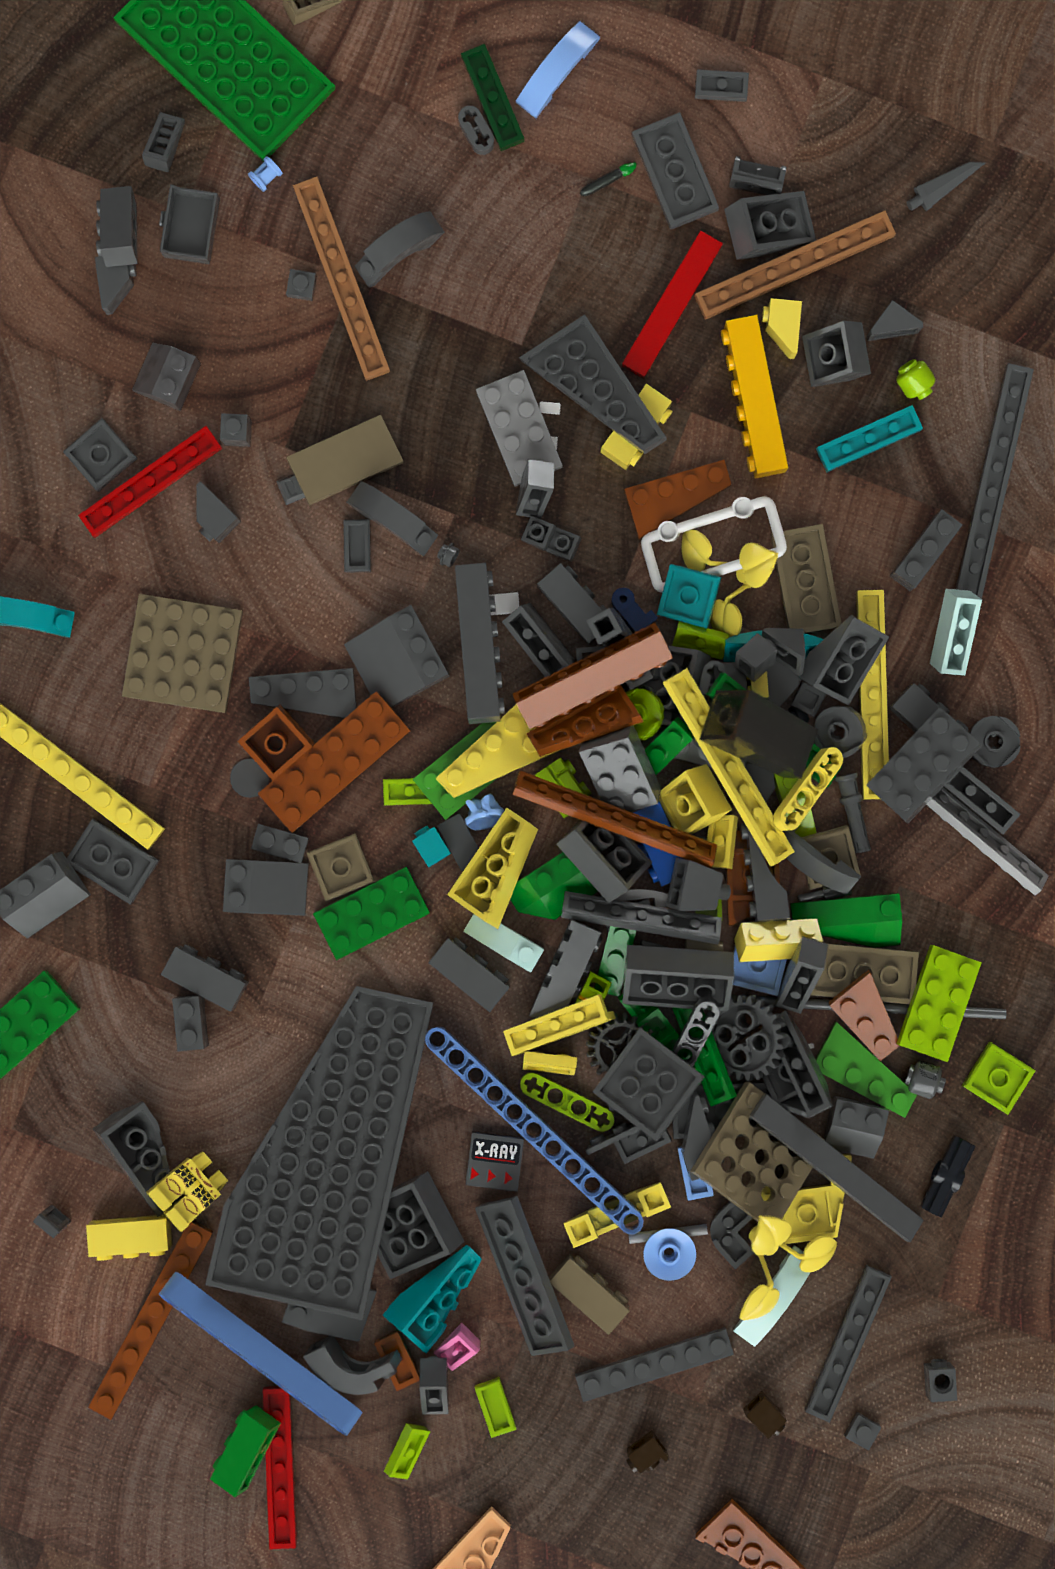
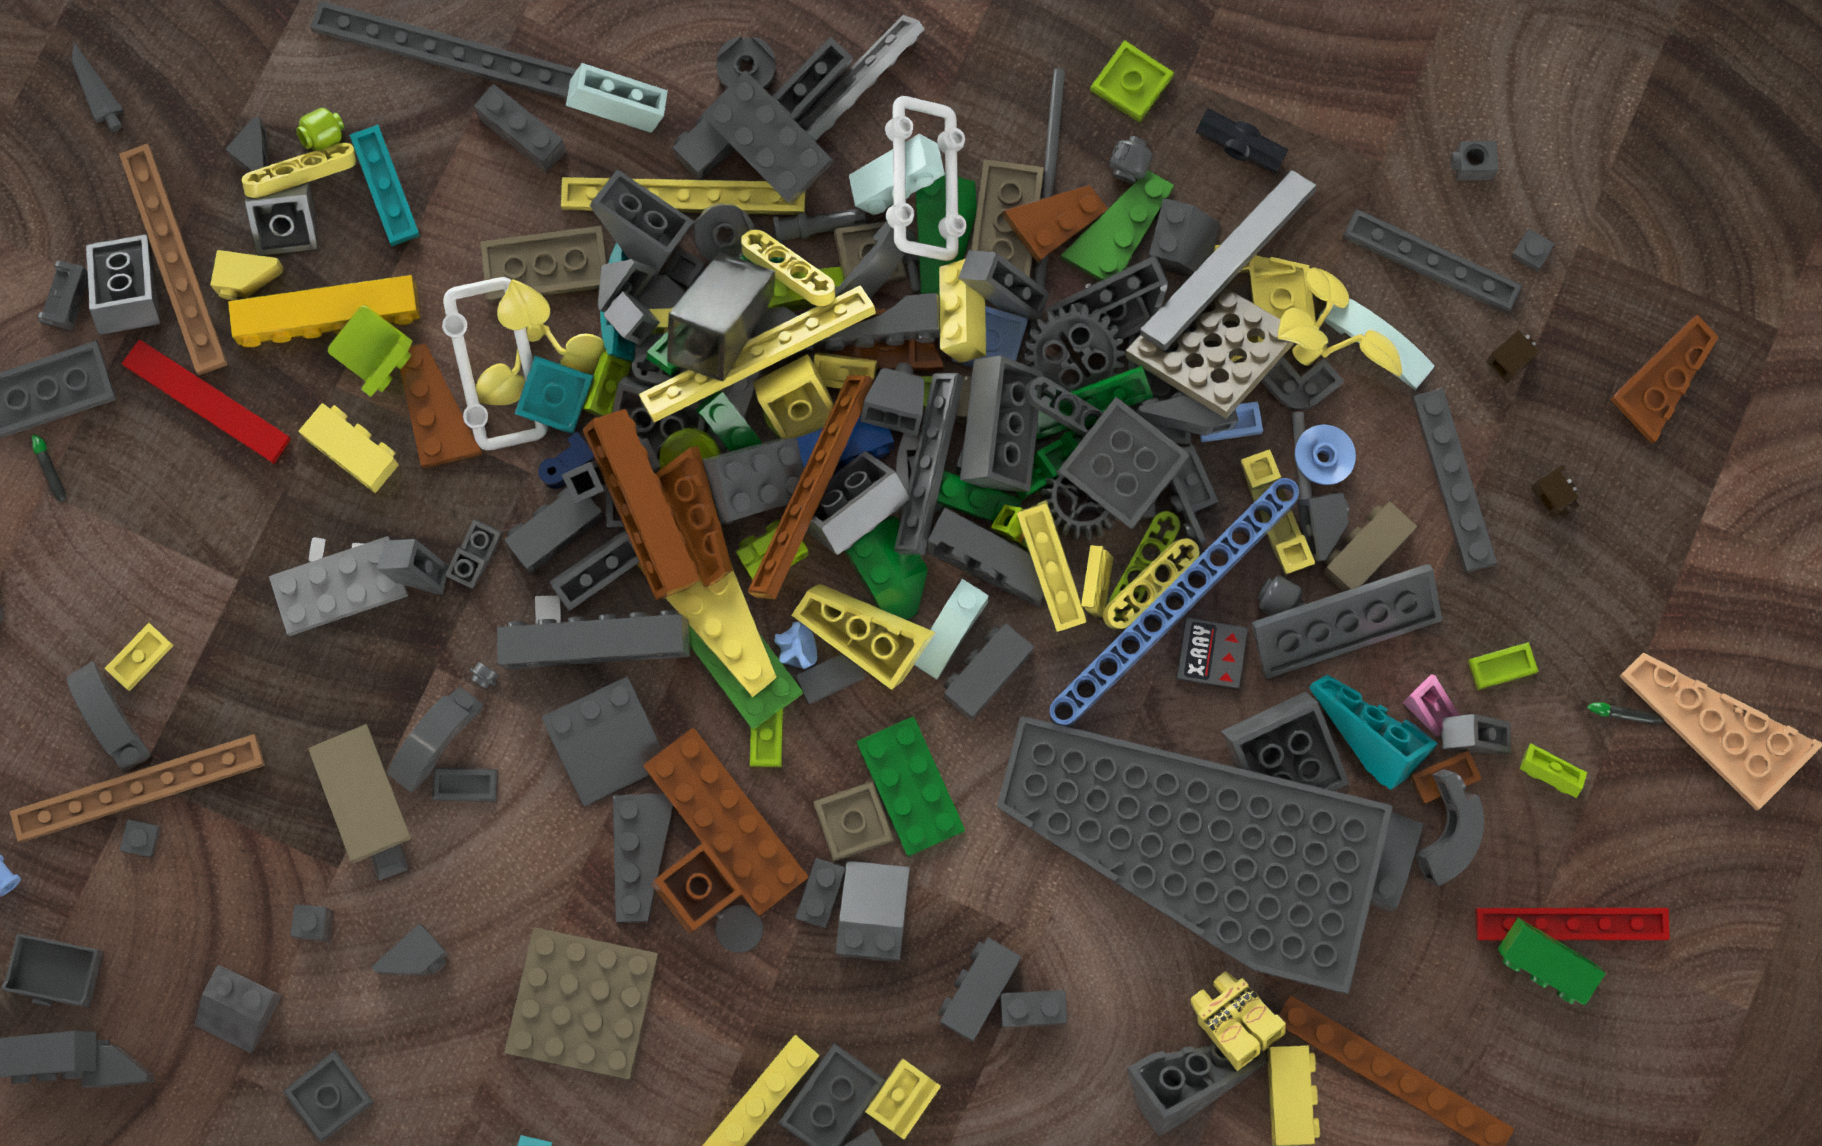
camera: 90 degrees left, 10 degrees down
(115, 918) = (903, 1098): none -> light yellow plate
(150, 482) = (367, 1033): red plate -> none
(260, 1353) = (1433, 938): medium blue beam -> none
(431, 845) = (833, 710): teal brick -> none
(450, 269) = (139, 657): none -> light yellow plate
(461, 1493) = (1604, 709): none -> pearl dark grey piece
(543, 1218) = (1279, 596): none -> dark grey head
(545, 1112) = (1149, 581): none -> light yellow beam
(589, 375) = (280, 498): dark grey wing -> none
(610, 1254) = (1323, 522): none -> dark grey slope
(720, 439) = (371, 349): none -> lime bracket
(857, 884) = (901, 213): none -> white bar
(889, 392) = (299, 170): none -> light yellow beam
(897, 878) = (874, 182): none -> light aqua brick
(938, 1003) = (1043, 139): lime plate -> none

